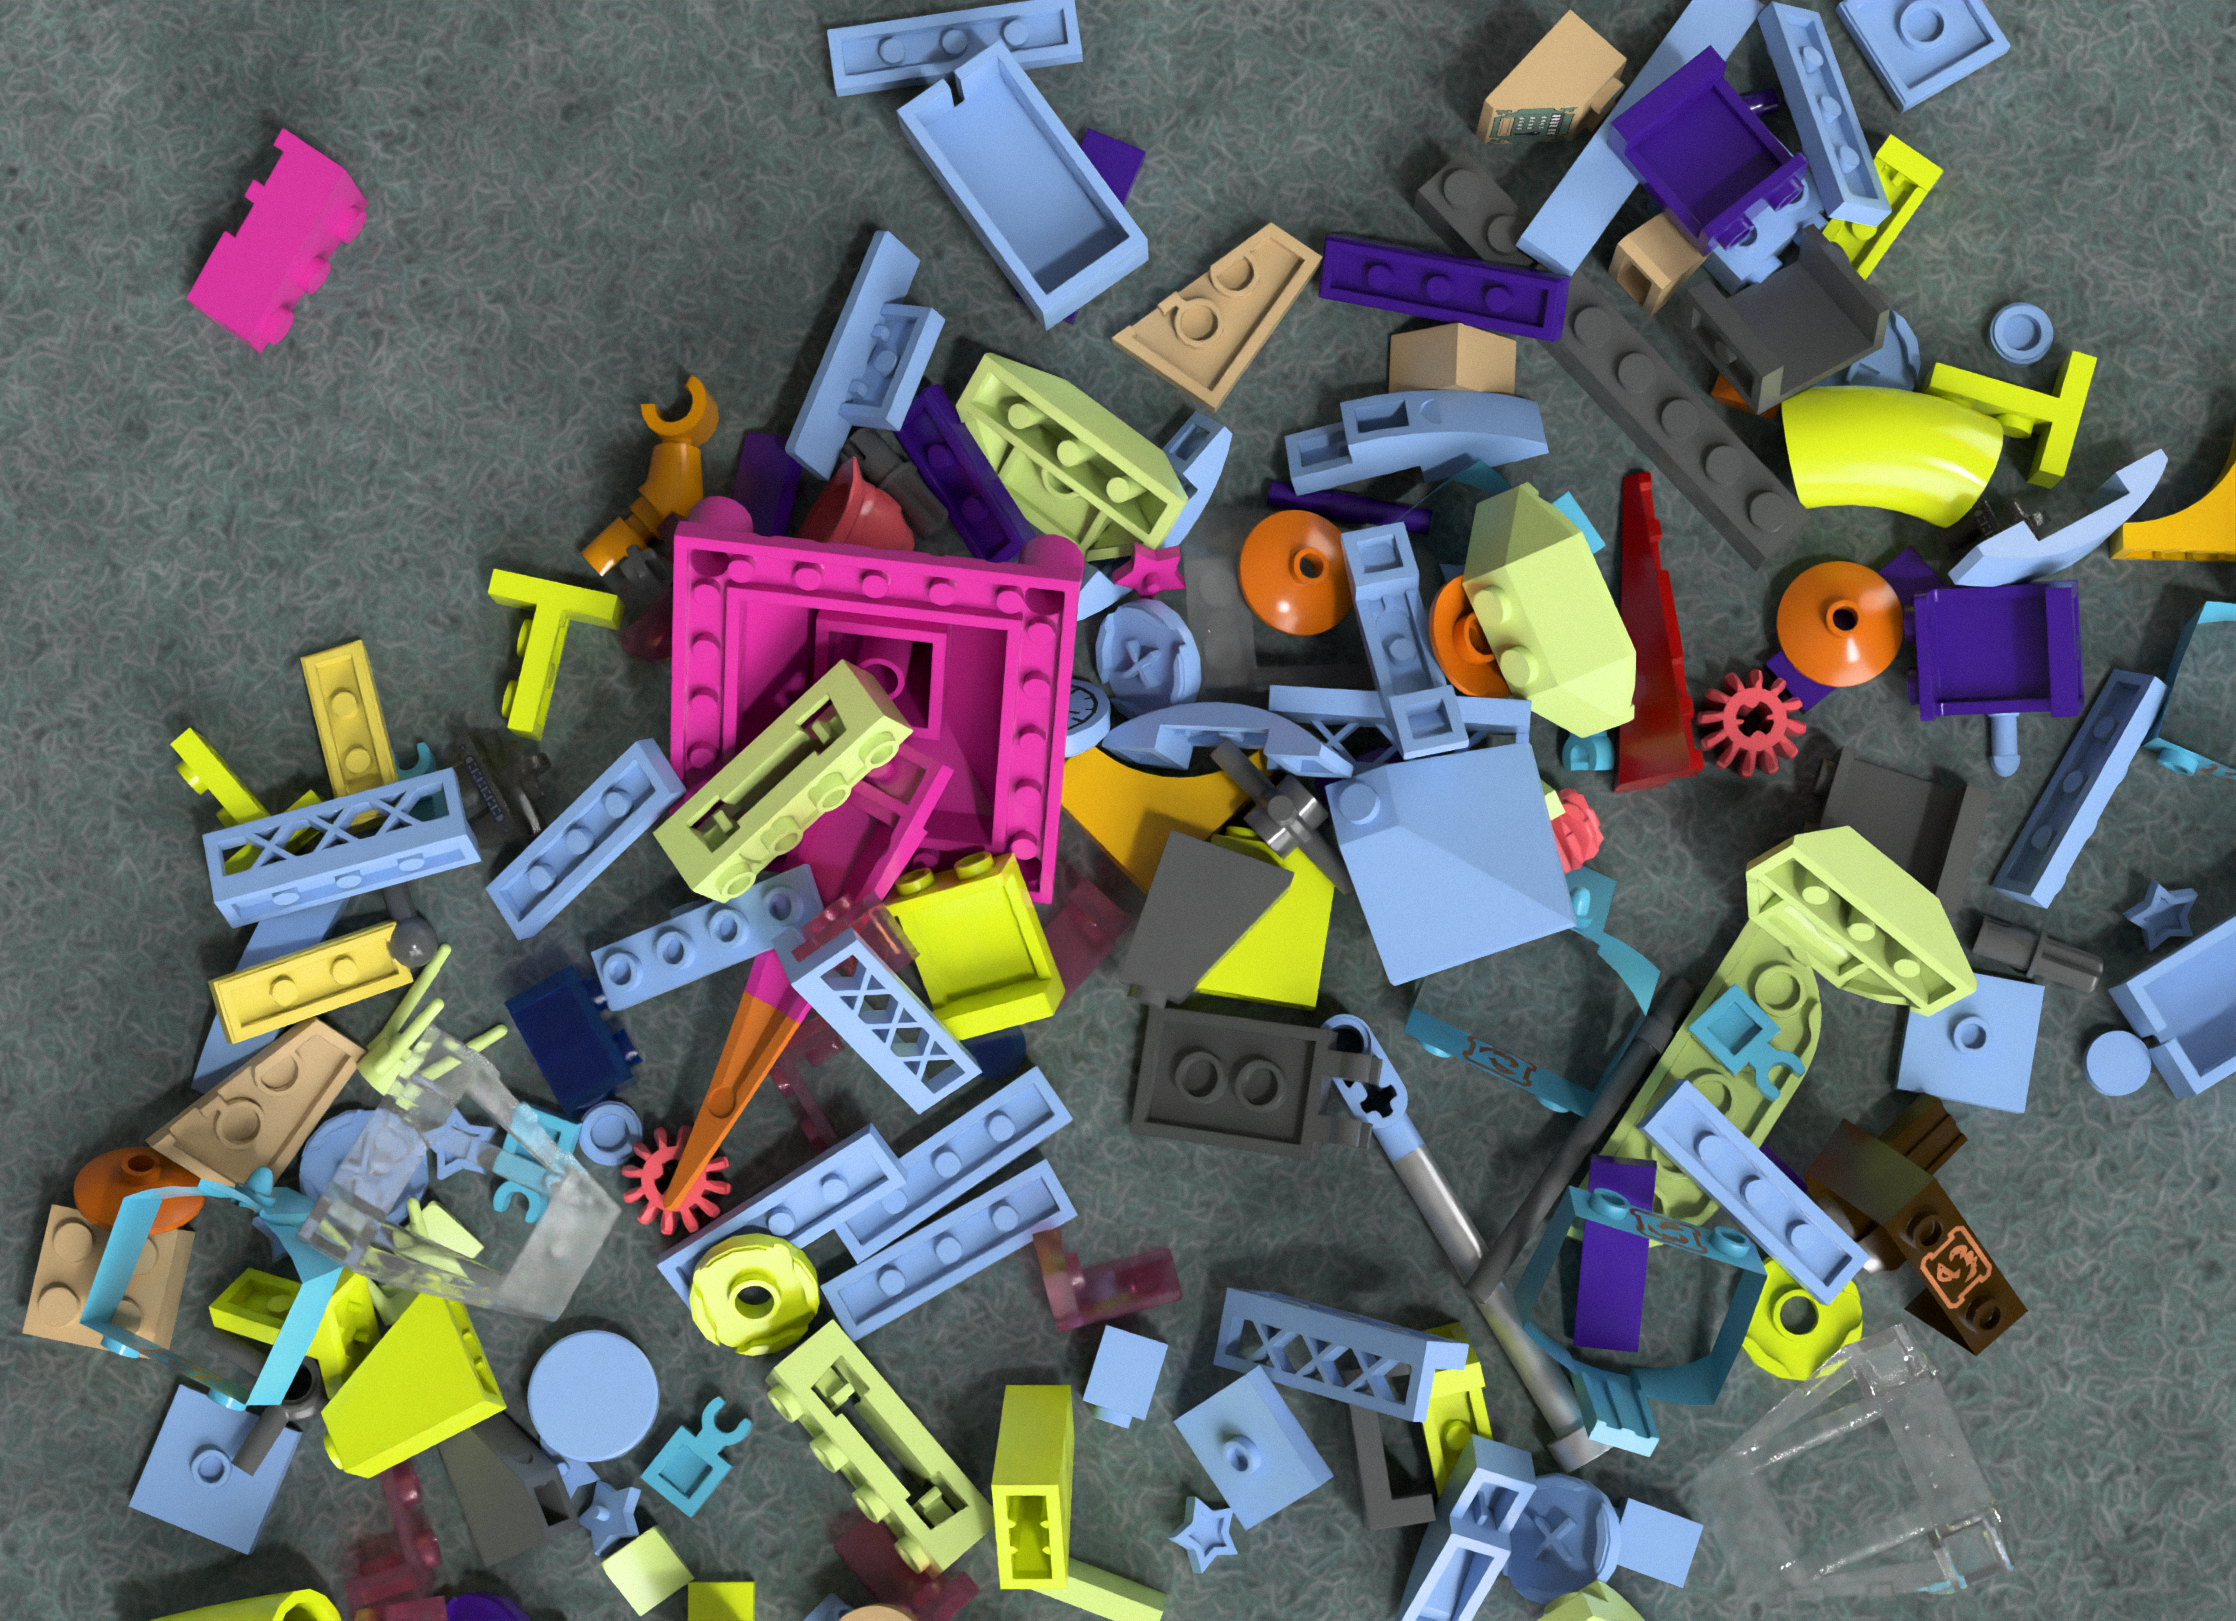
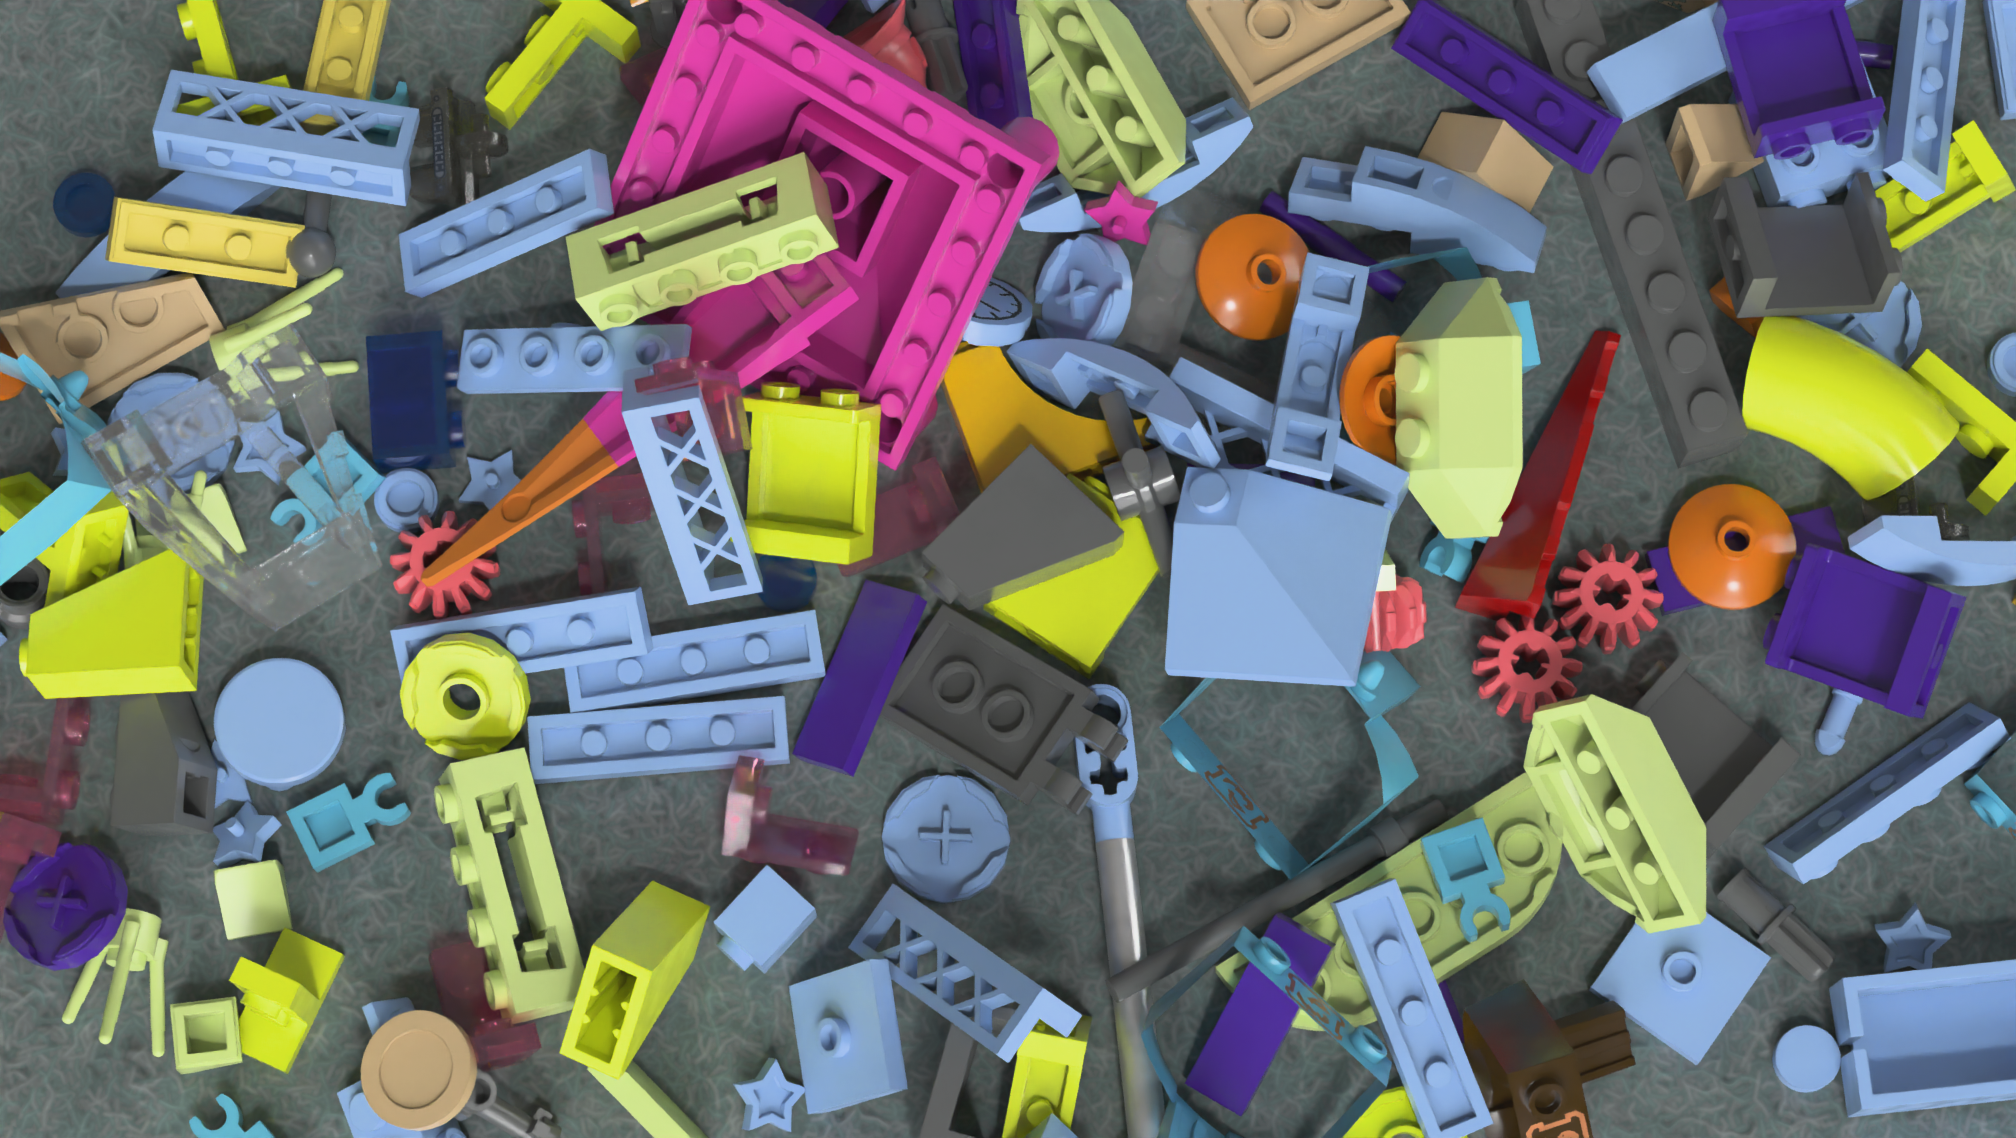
camera: 20 degrees right, 5 degrees down
(179, 992) = (84, 204): none -> clear blue tile
(682, 1080) = (490, 480): none -> light blue piece
(1106, 1108) = (859, 677): none -> dark purple tile
(1252, 1219) = (945, 838): none -> light blue tile
(1713, 842) = (1531, 645): none -> coral gear

